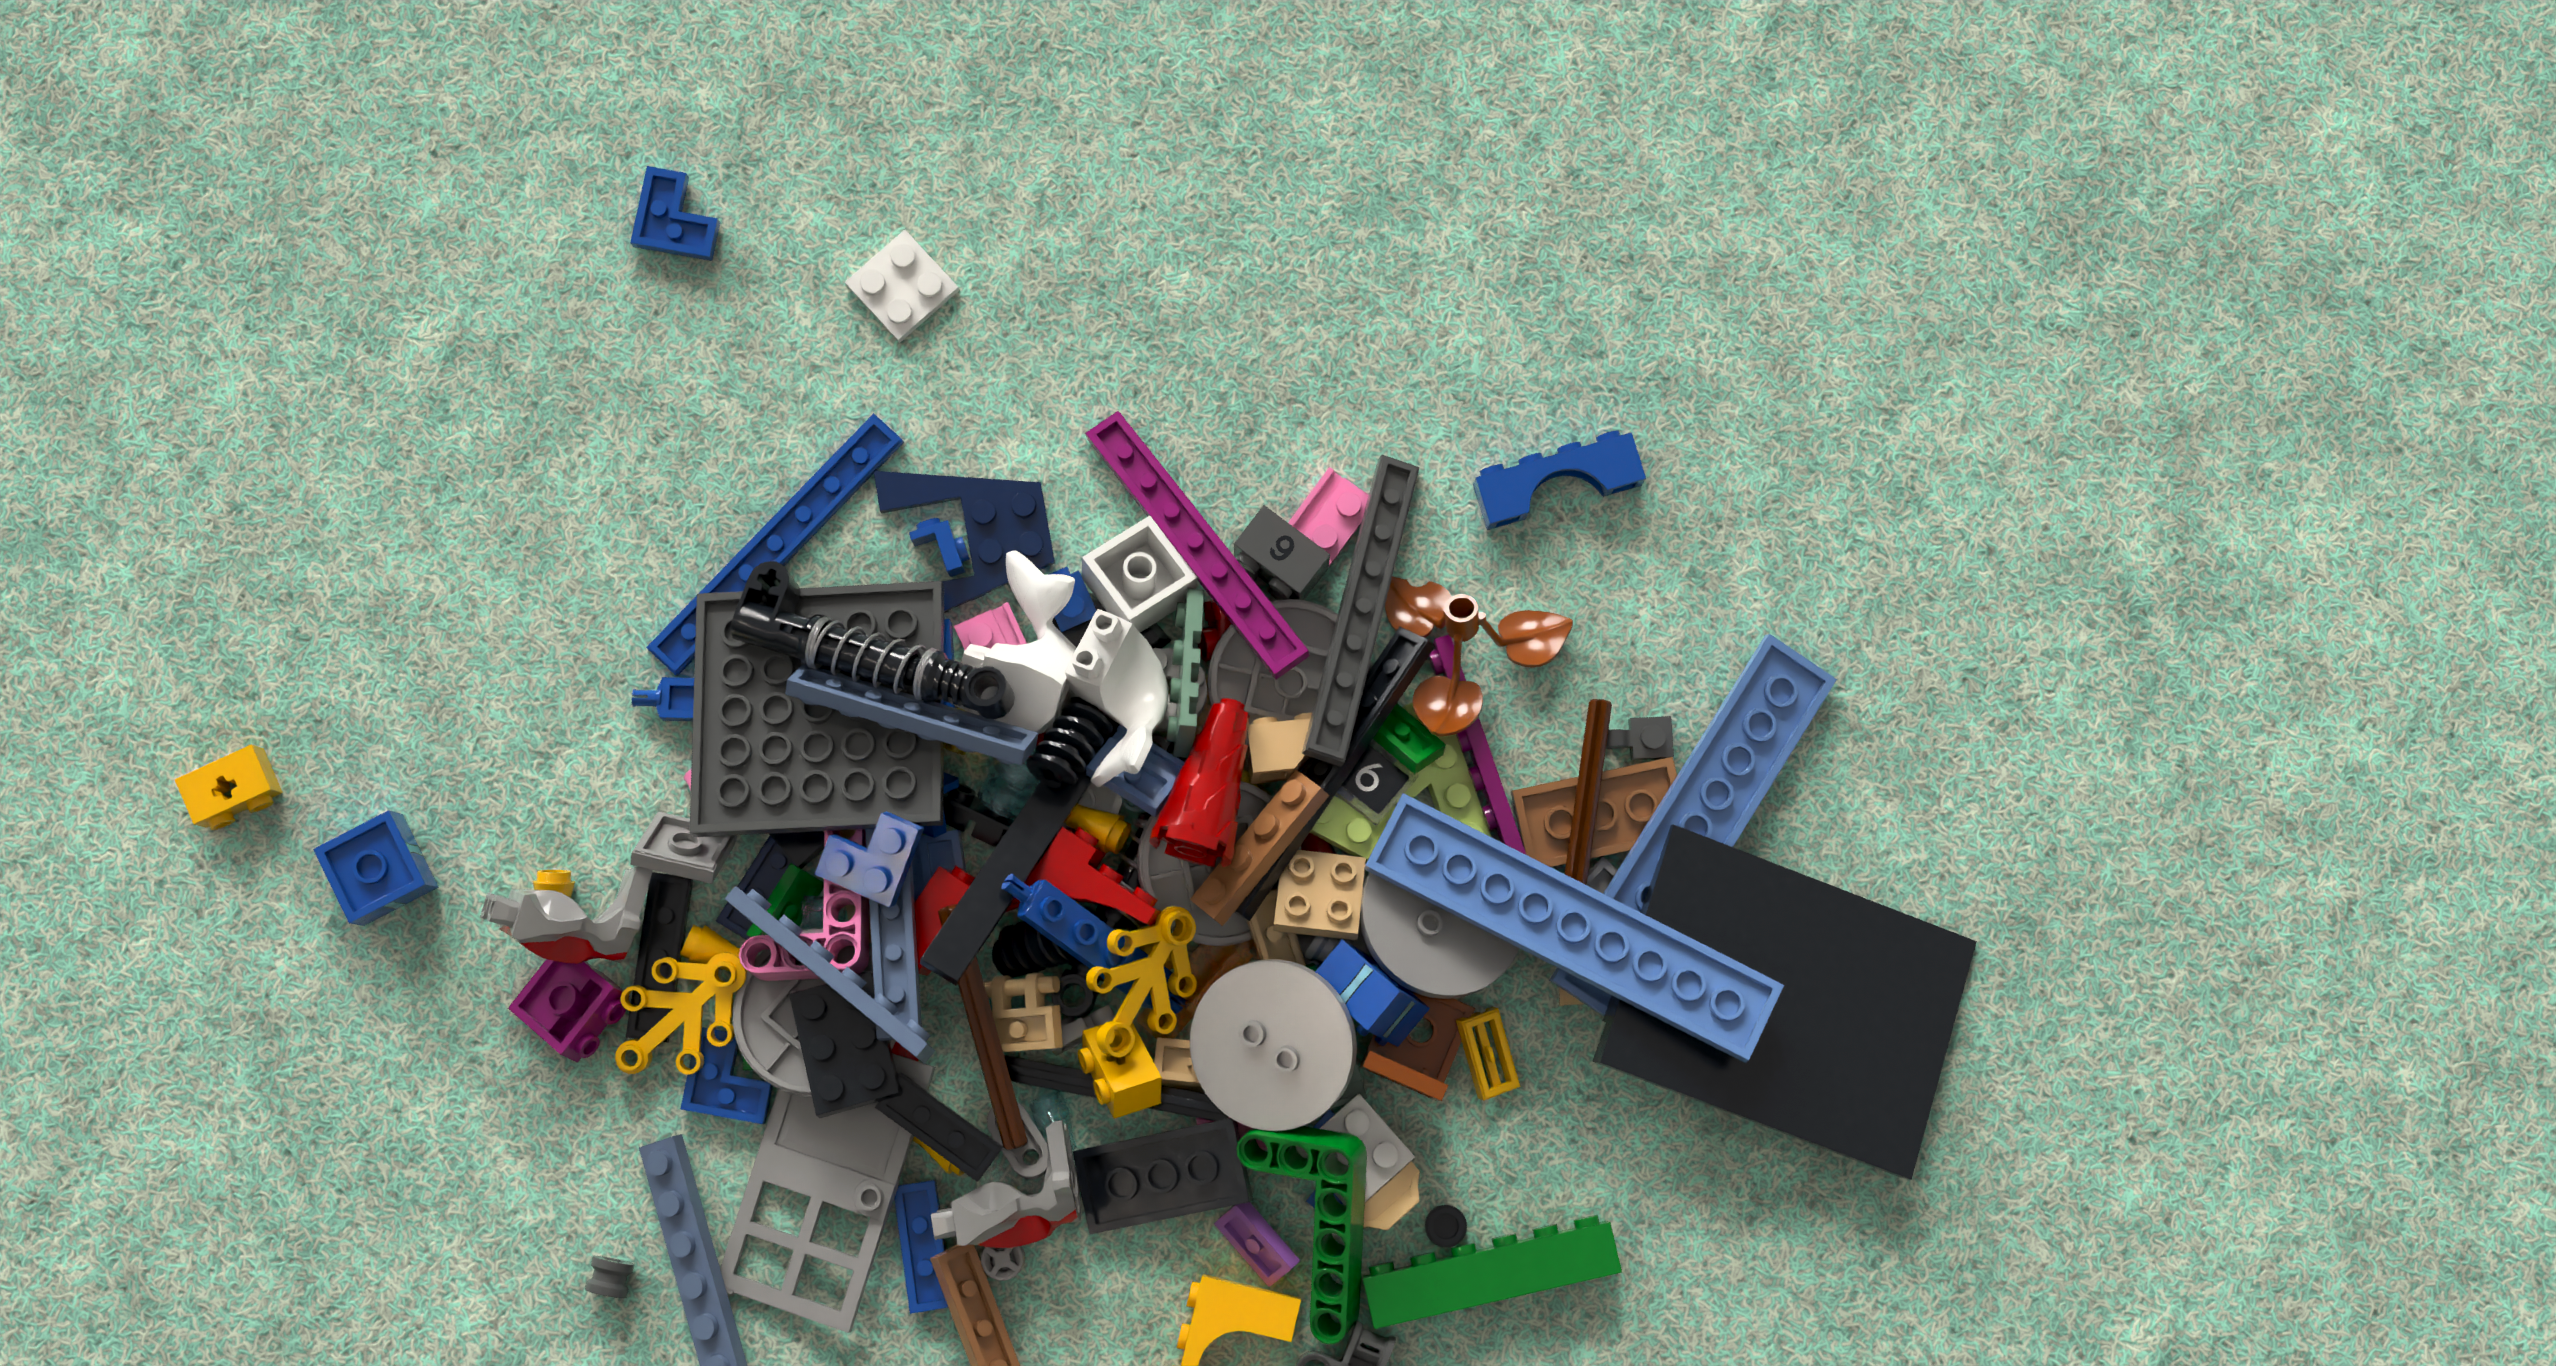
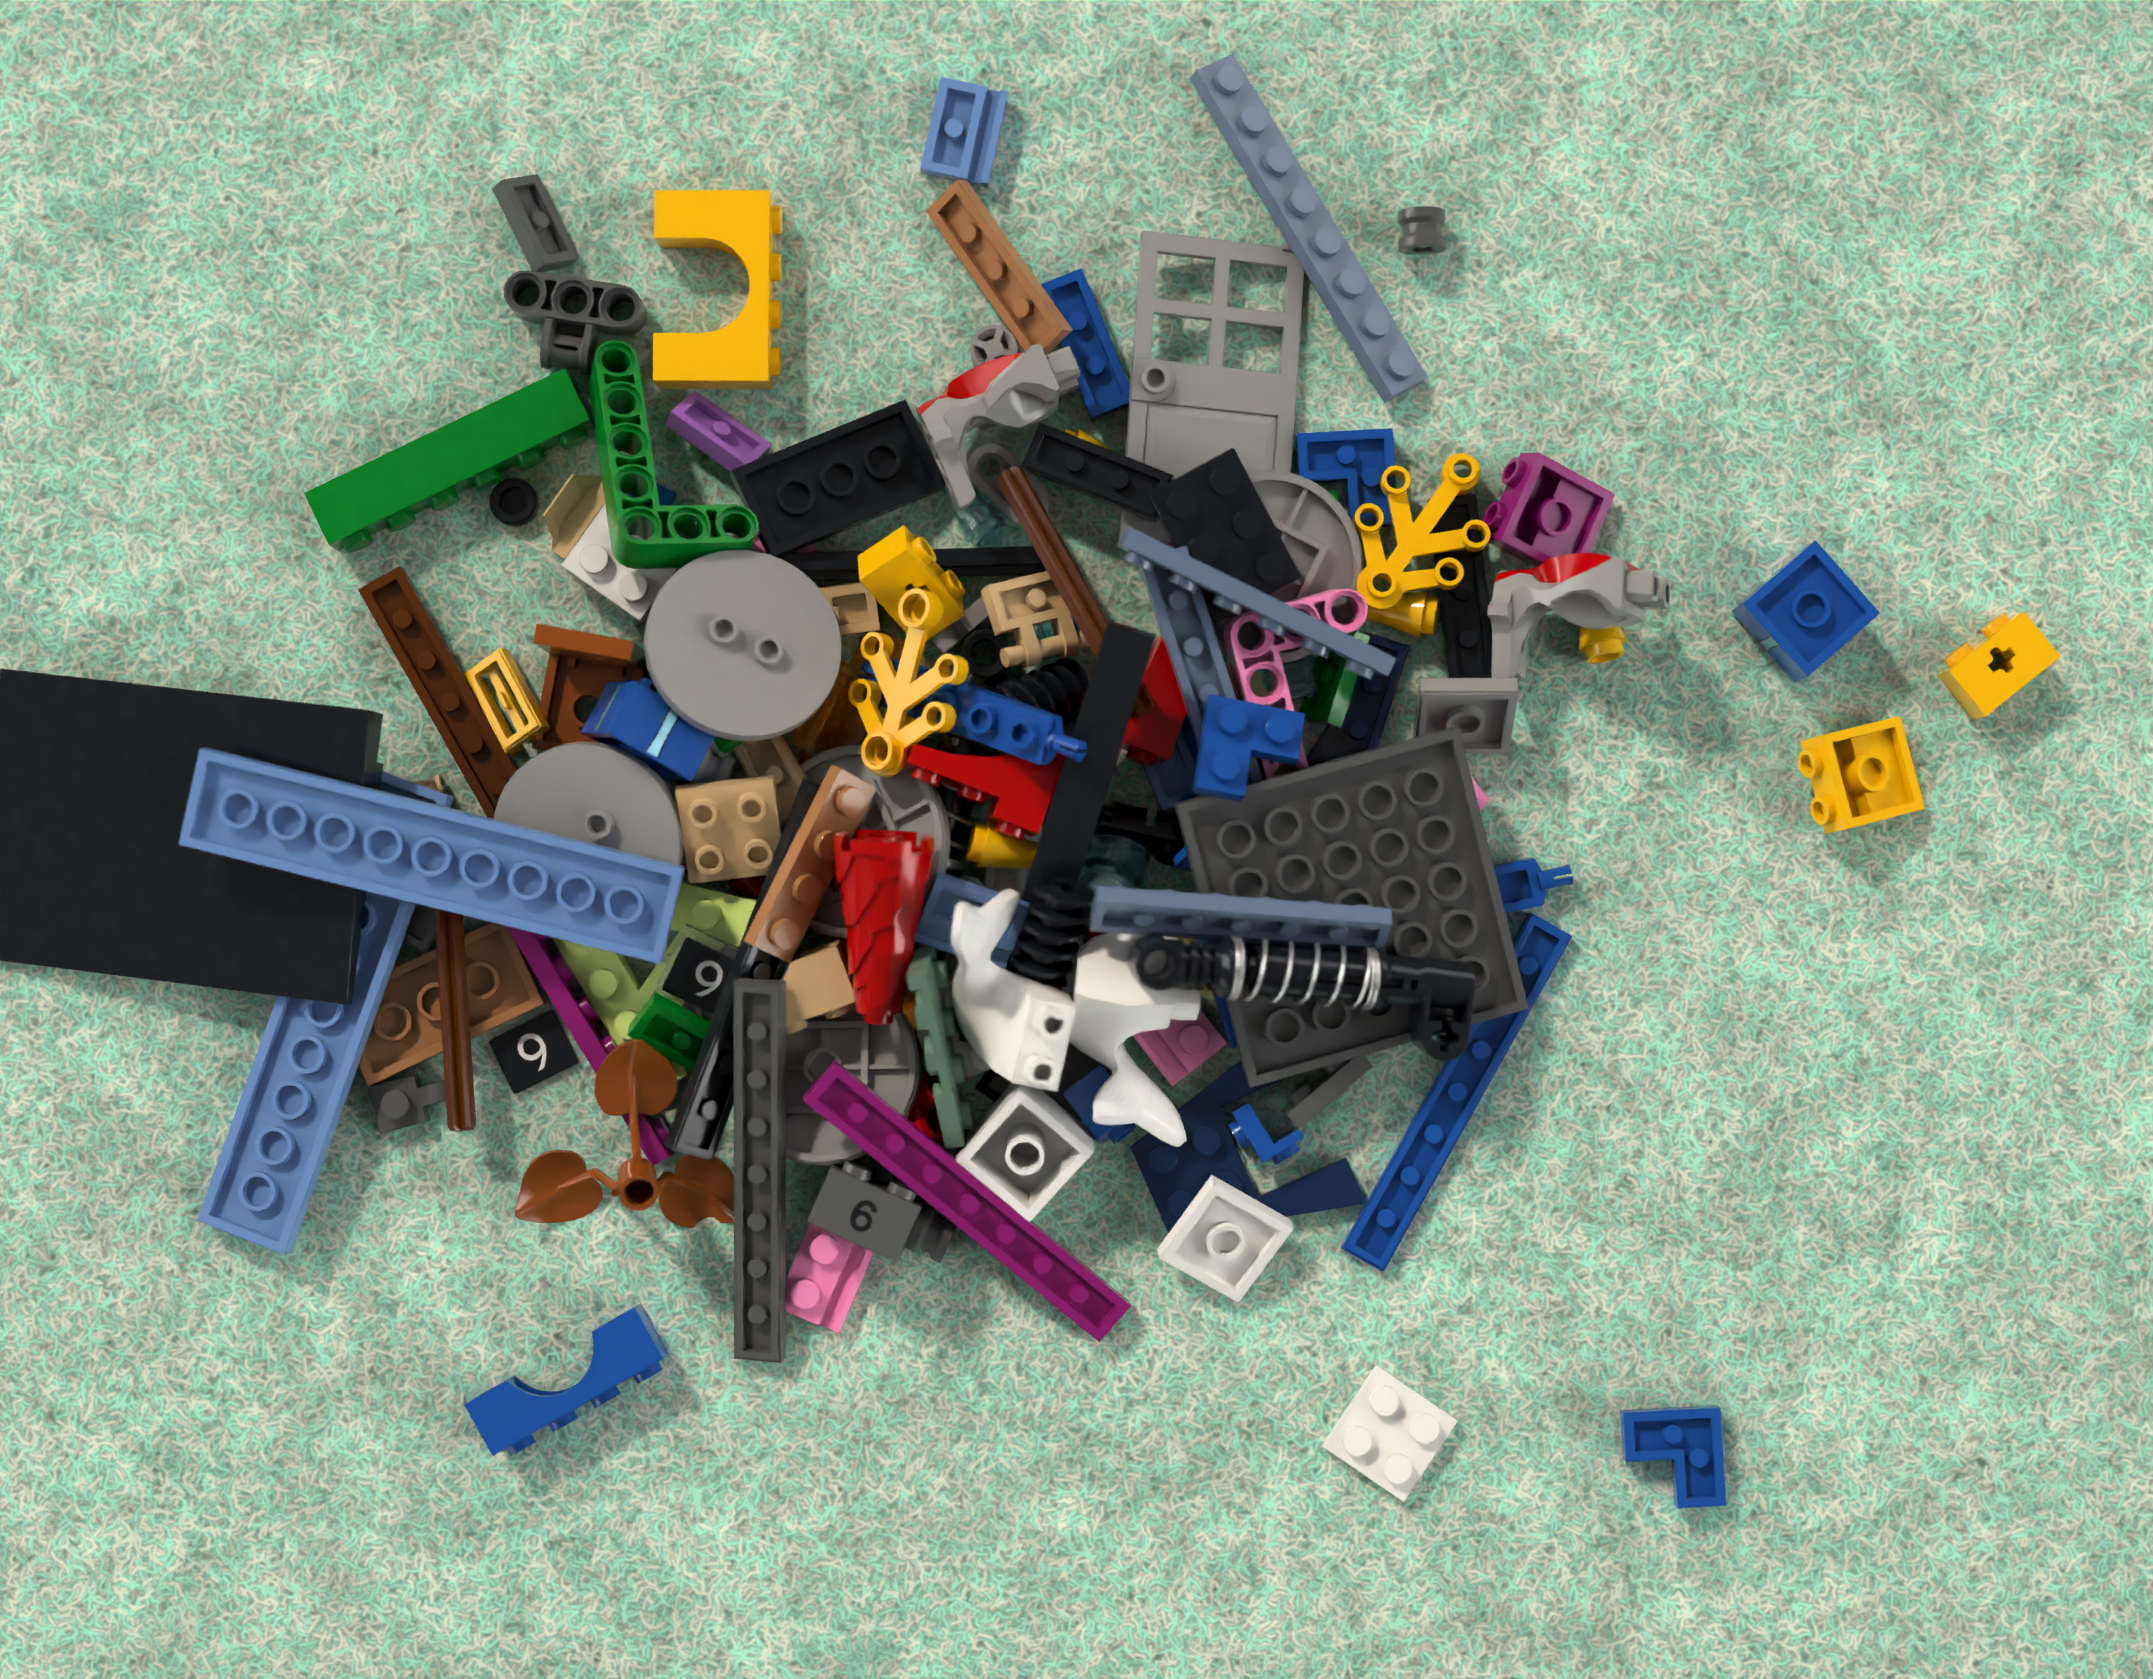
camera: 175 degrees right, 5 degrees up
(370, 722) = (1860, 775): none -> yellow plate
(895, 564) = (1309, 1099): none -> dark grey plate
(994, 467) = (1225, 1238): none -> white plate
(1230, 525) = (931, 1233): none -> dark grey wheel
(1530, 753) = (533, 1053): none -> piece
(1540, 1077) = (440, 685): none -> reddish brown plate

